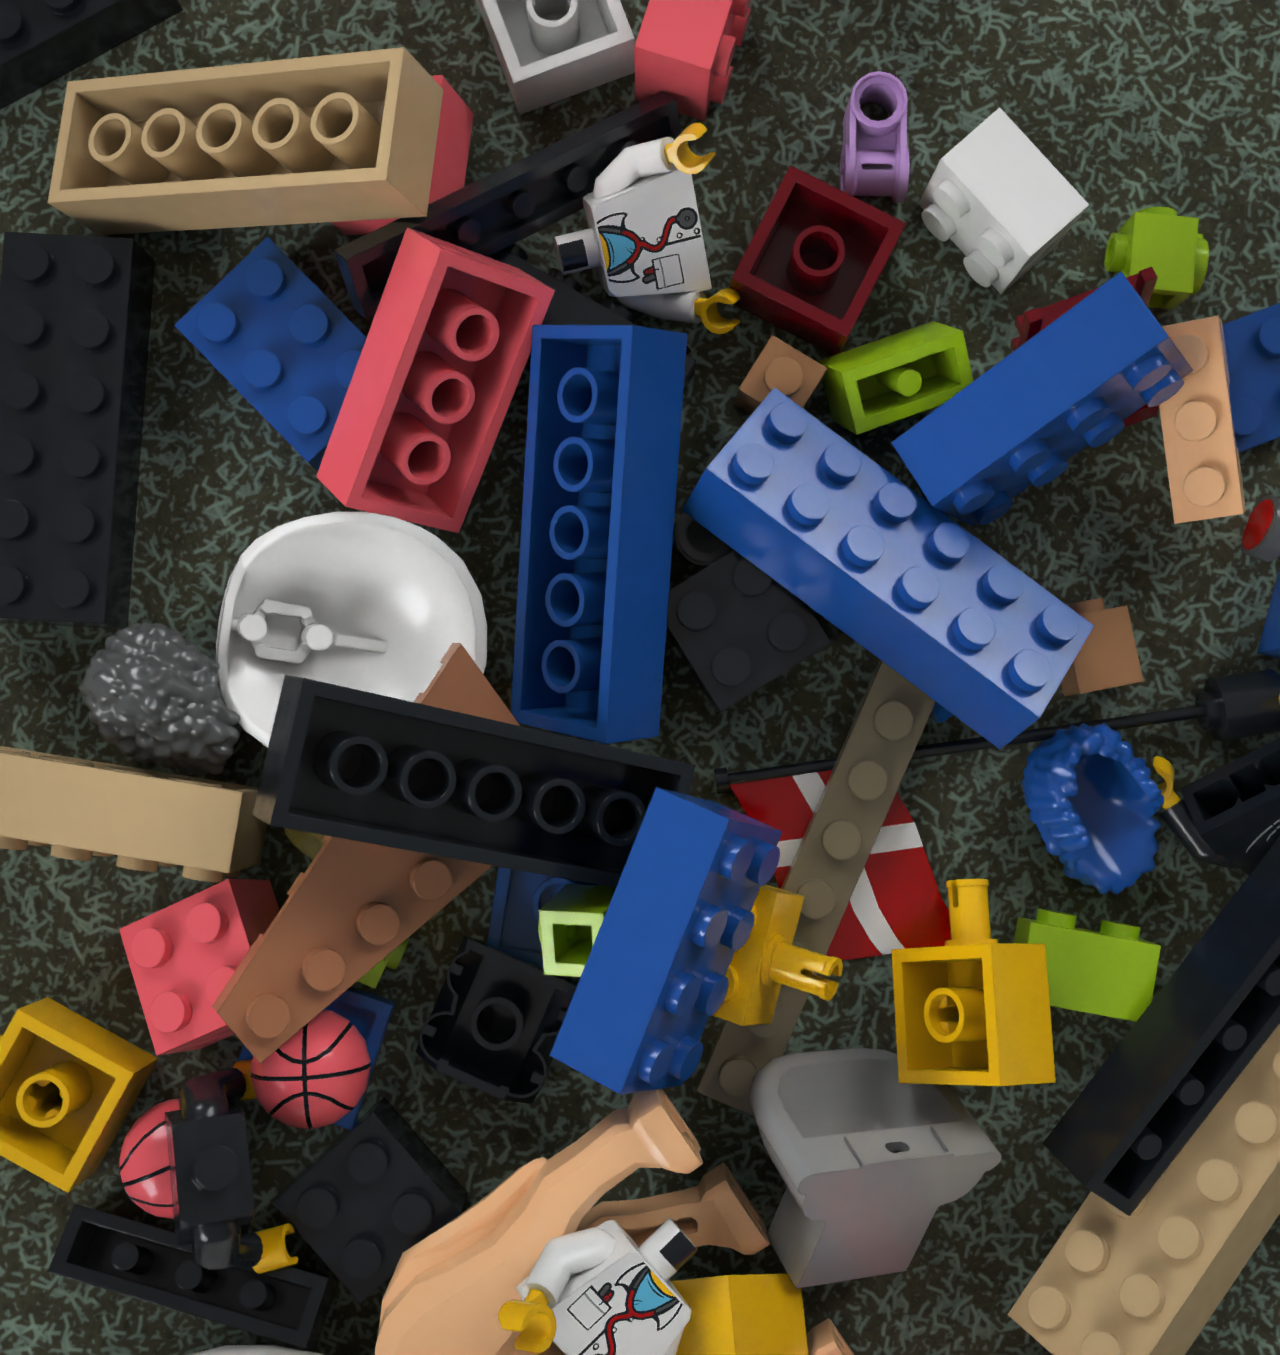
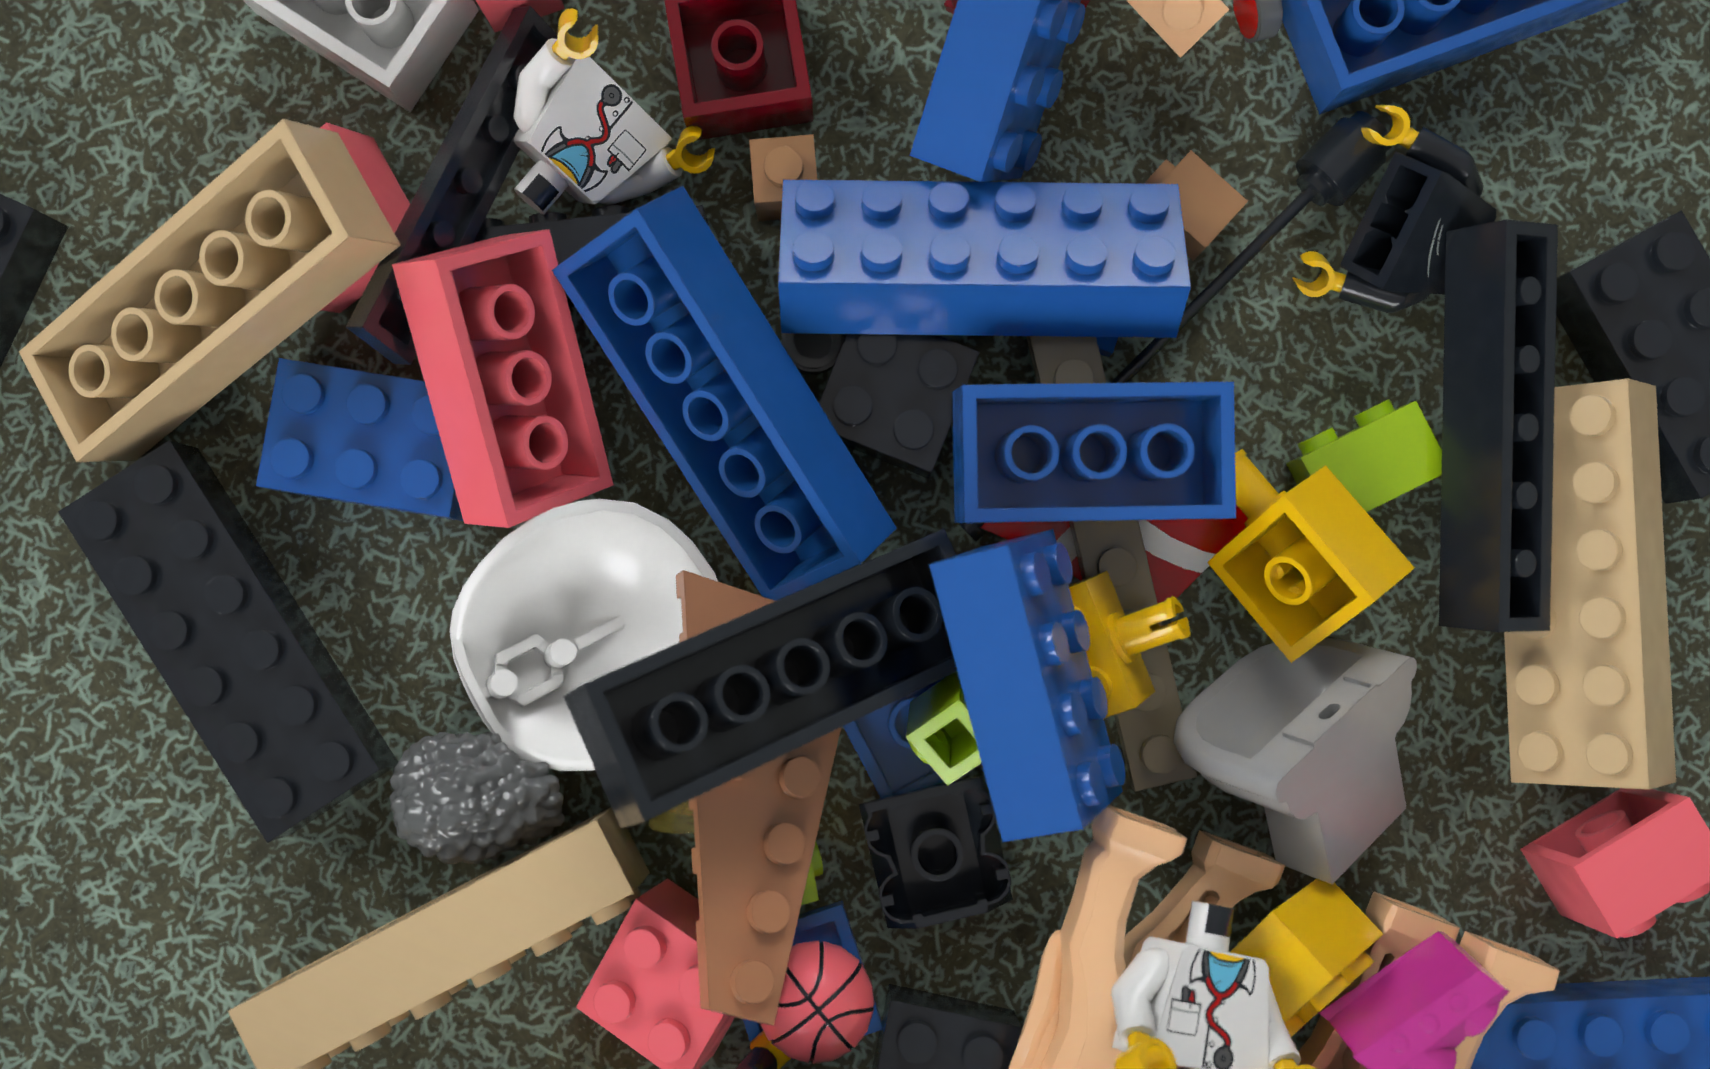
camera: 40 degrees left, 0 degrees up
(862, 794) = (1093, 452): none -> blue brick
(896, 376) = (873, 101): lime brick -> none
(1094, 806) = (1281, 328): blue piece -> none

